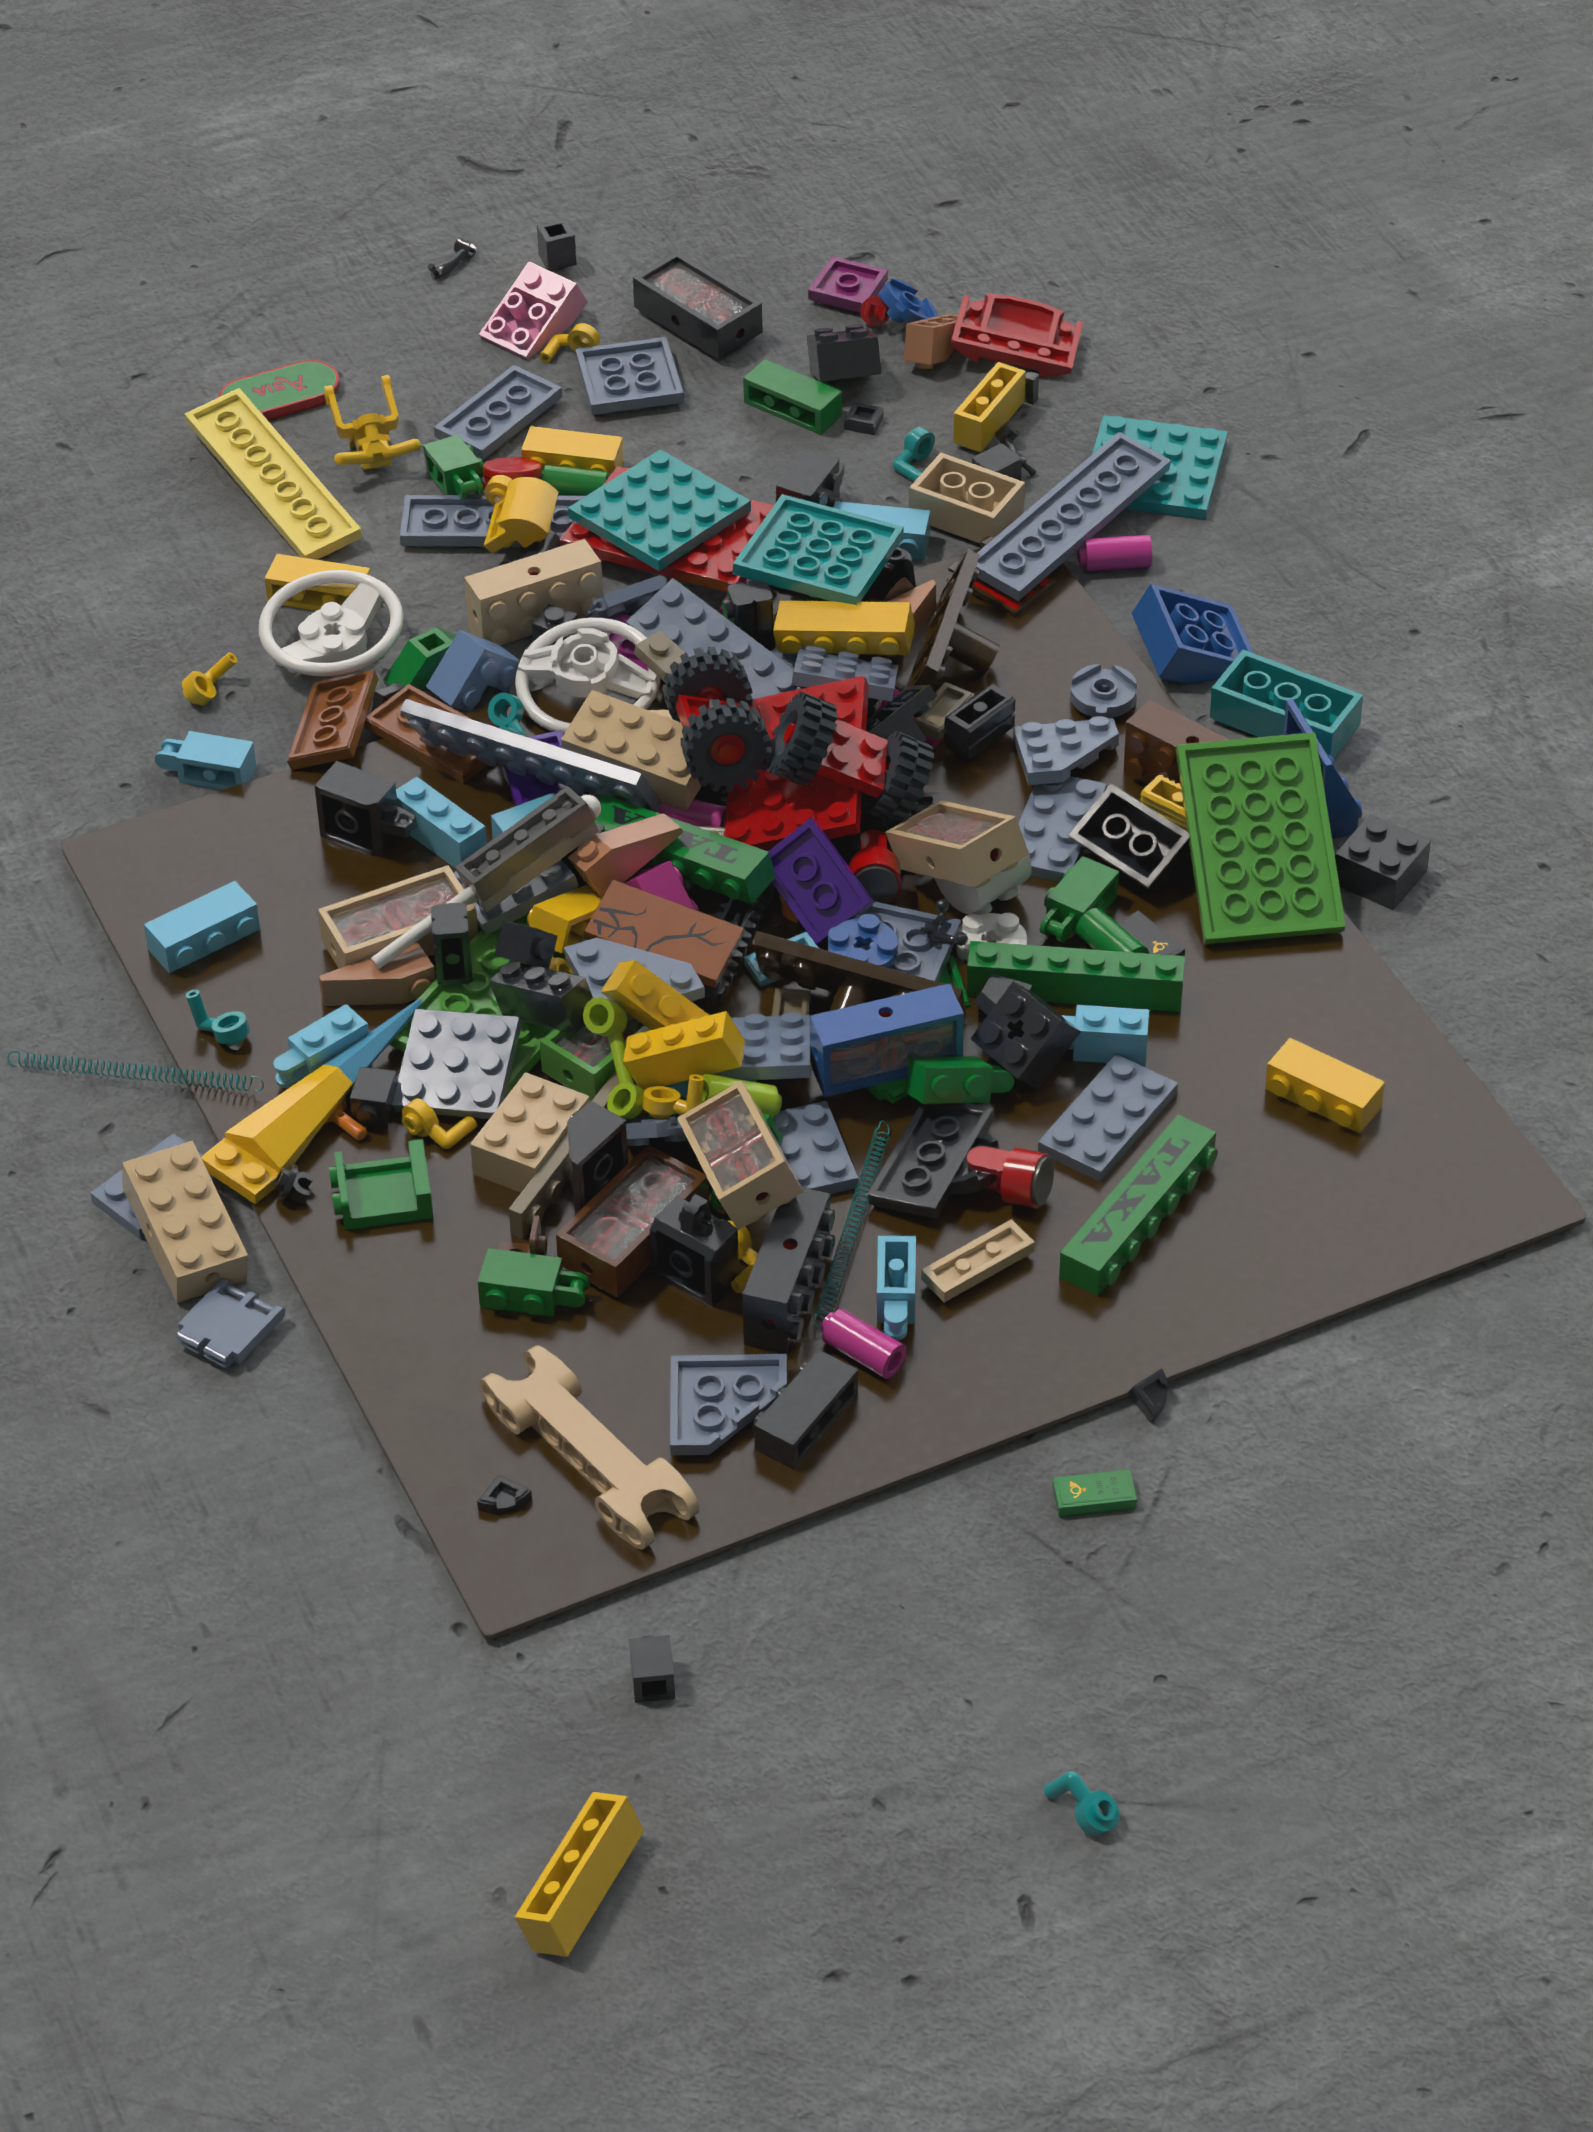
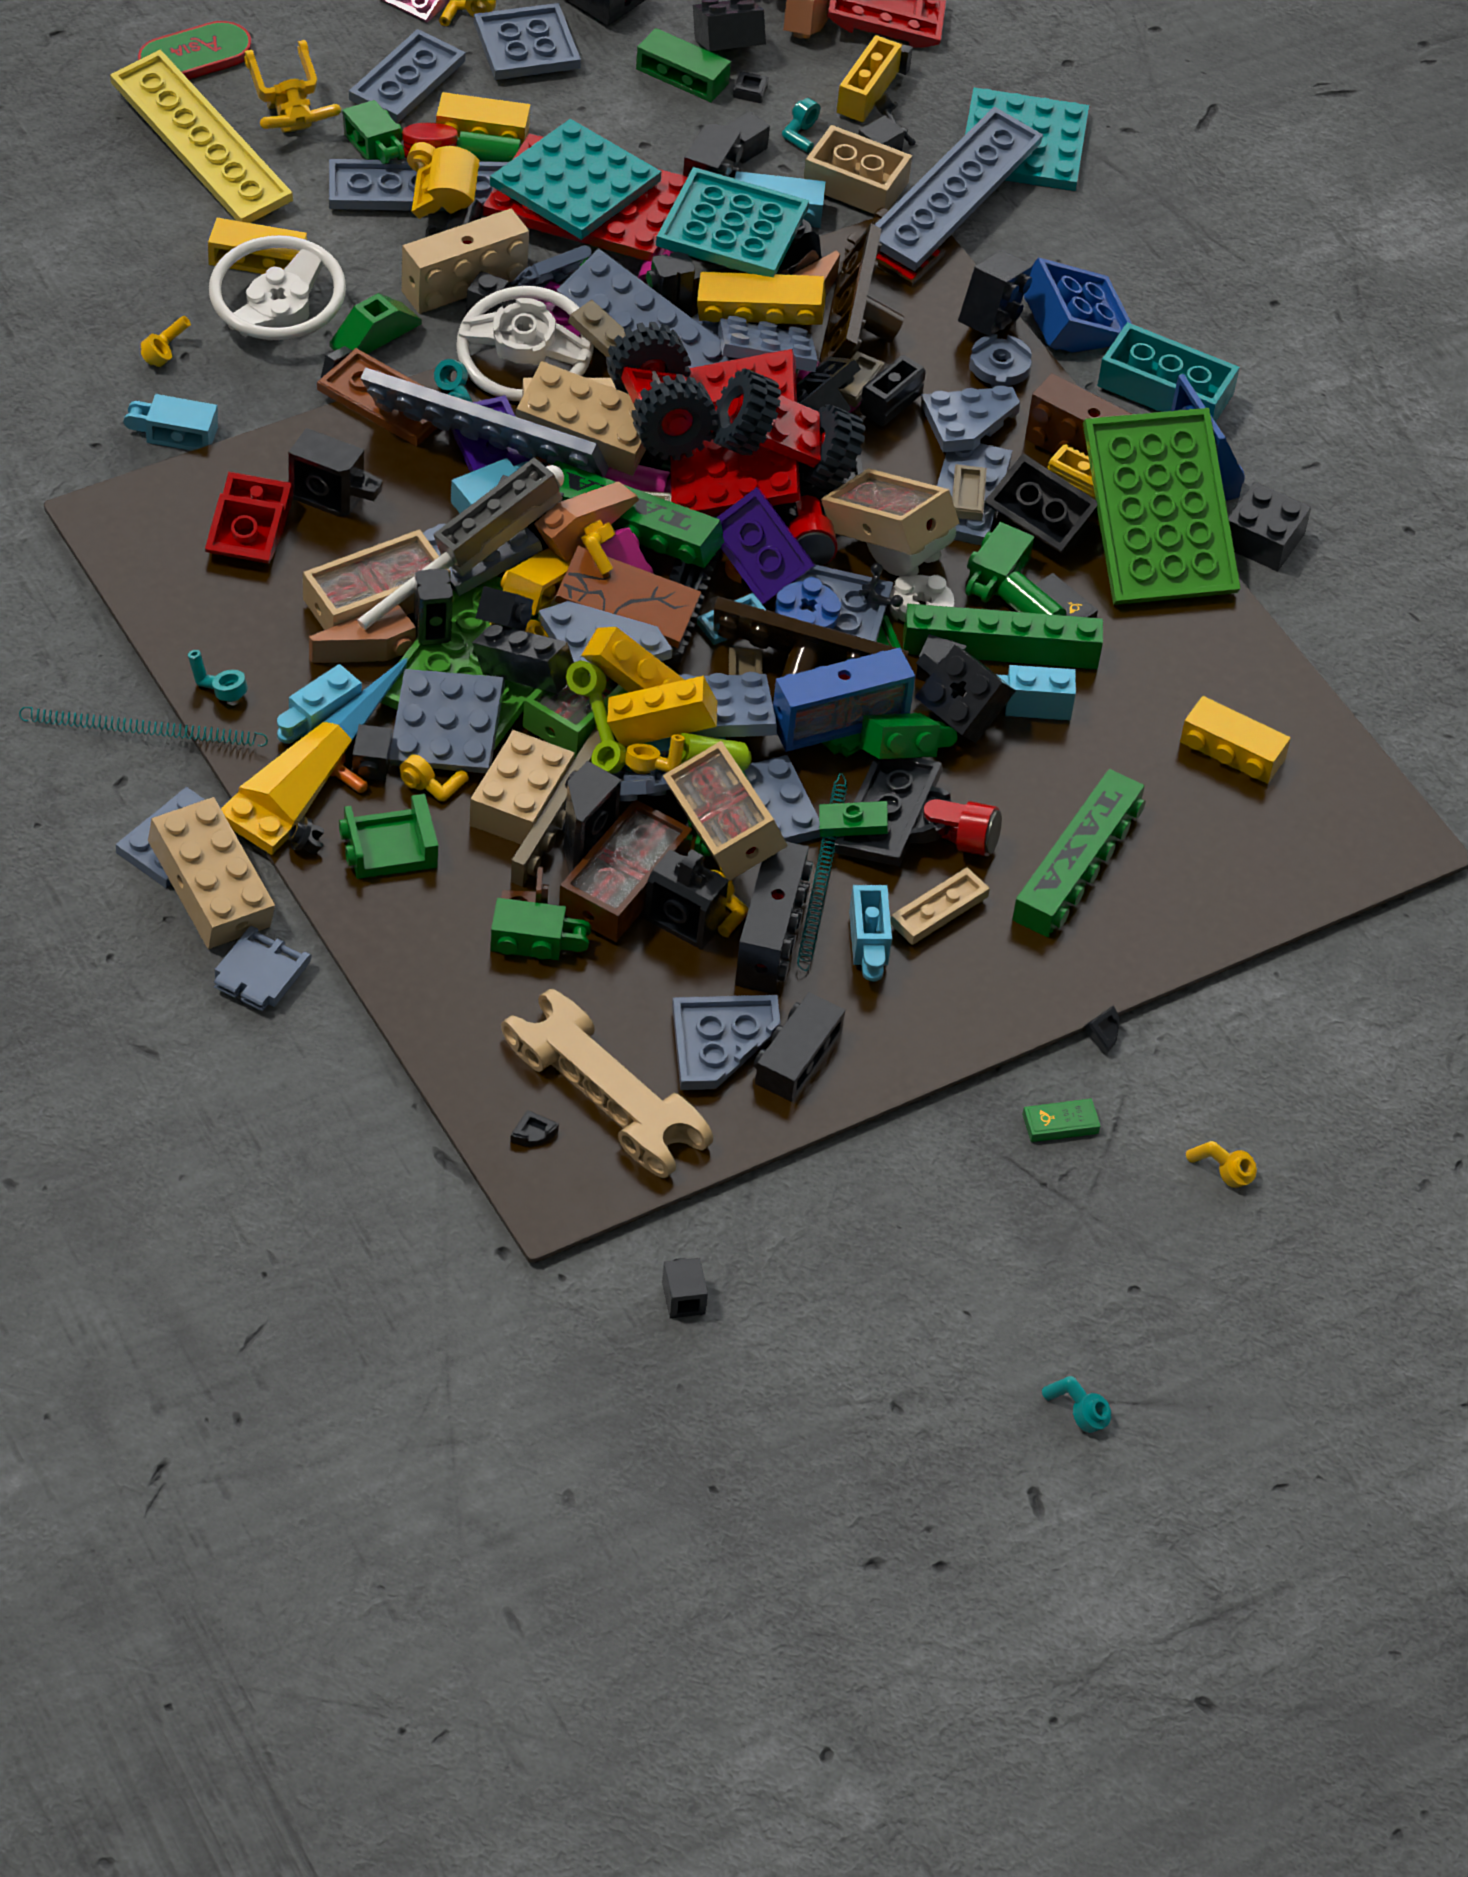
camera: 10 degrees left, 5 degrees up
(202, 926) = (191, 587): medium azure brick -> none
(275, 854) = (249, 517): none -> red slope
(333, 720) = (288, 383): dark orange tile -> none
(441, 823) = (407, 488): medium azure brick -> none
(469, 668) = (412, 334): medium blue brick -> none
(579, 1874) = (642, 1477): yellow brick -> none
(632, 868) = (595, 535): none -> yellow plate
(859, 467) = (754, 135): none -> black brick
(863, 1343) = (844, 983): dark pink brick -> none
(889, 1167) = (853, 819): none -> green plate
(1051, 826) = (969, 491): none -> dark tan tile
(1100, 620) = (995, 293): none -> black brick
(1108, 1117) = (1042, 769): sand blue plate -> none
(1116, 553) = (998, 224): dark pink brick -> none
(1277, 1541) = (1228, 1163): none -> yellow plate

